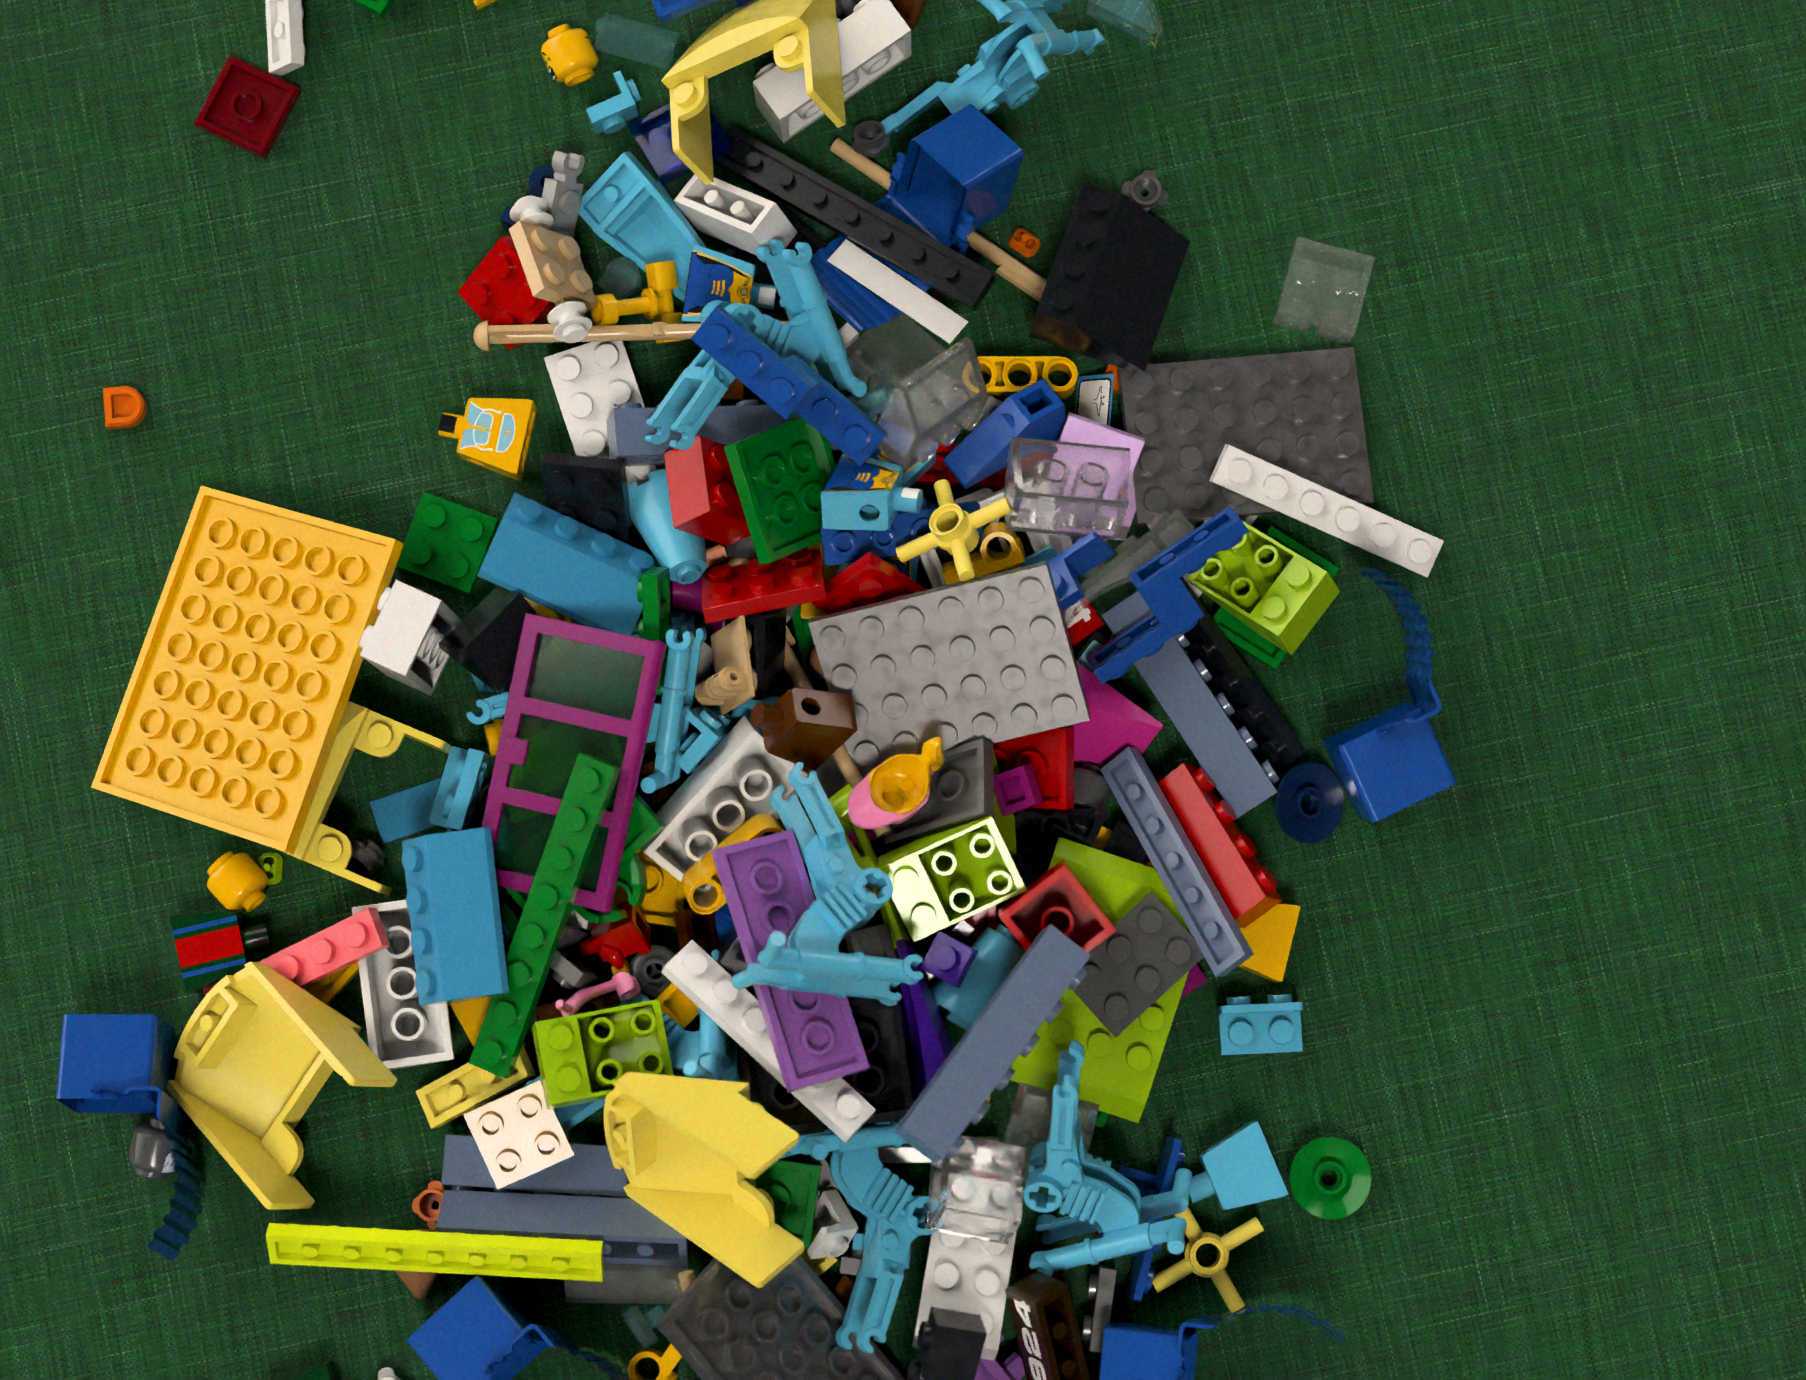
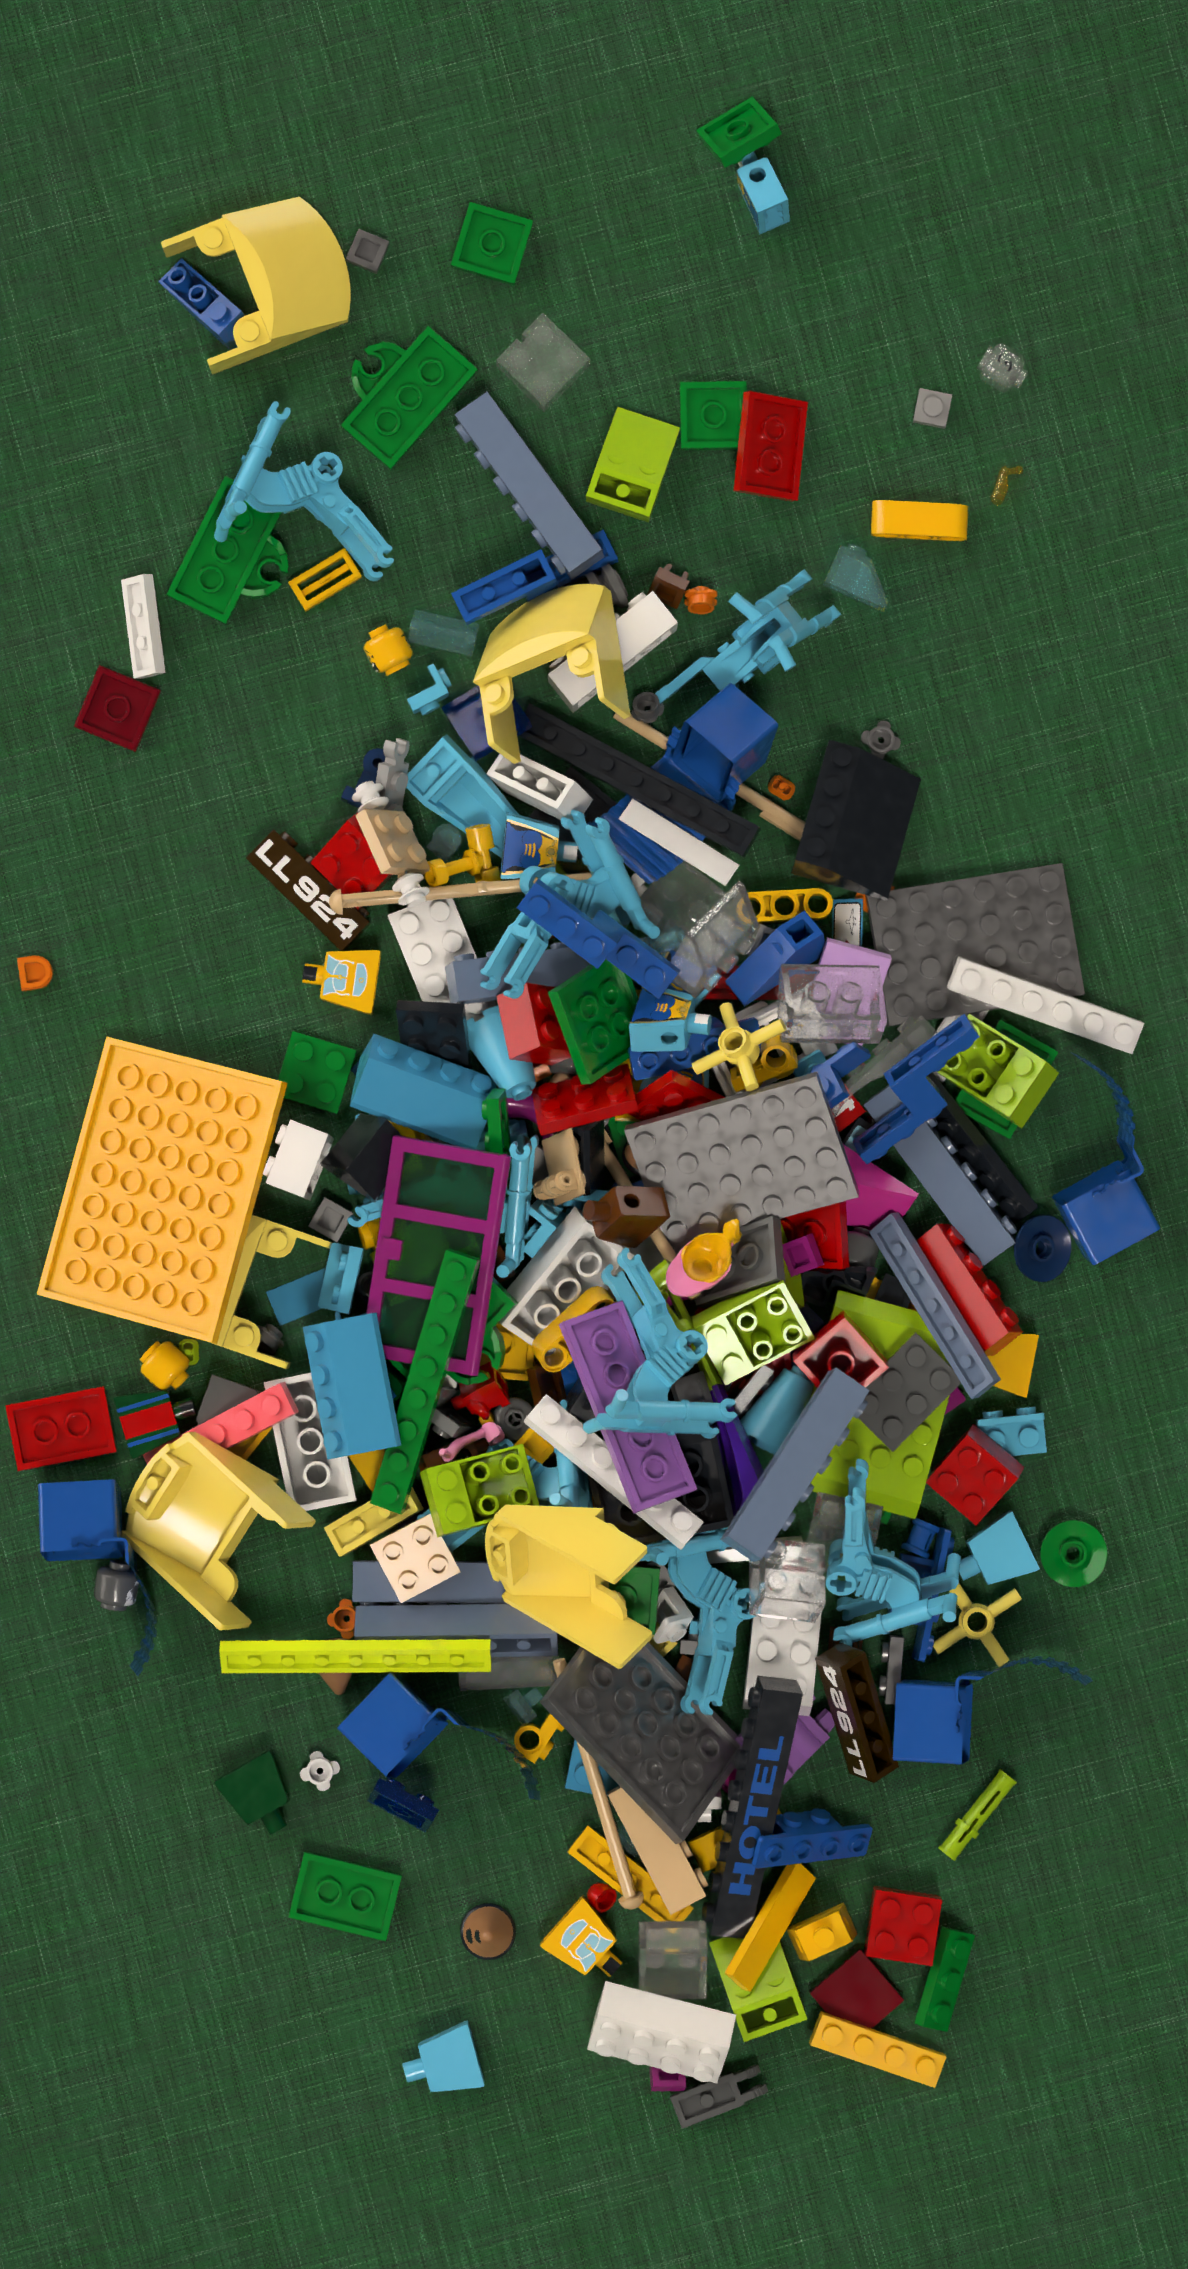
camera: 10 degrees left, 5 degrees up
(107, 951) = (61, 1428): none -> red plate
(301, 921) = (221, 1396): none -> dark grey slope
(450, 719) = (330, 1219): none -> light grey plate
(451, 324) = (306, 889): none -> dark brown brick
(941, 18) = (700, 600): none -> orange plate
(949, 959) = (755, 1397): dark purple plate -> none
(1143, 1147) = (920, 1538): none -> blue bush
(1214, 1073) = (974, 1474): none -> red brick
(1323, 290) = (1034, 818): clear piece -> none

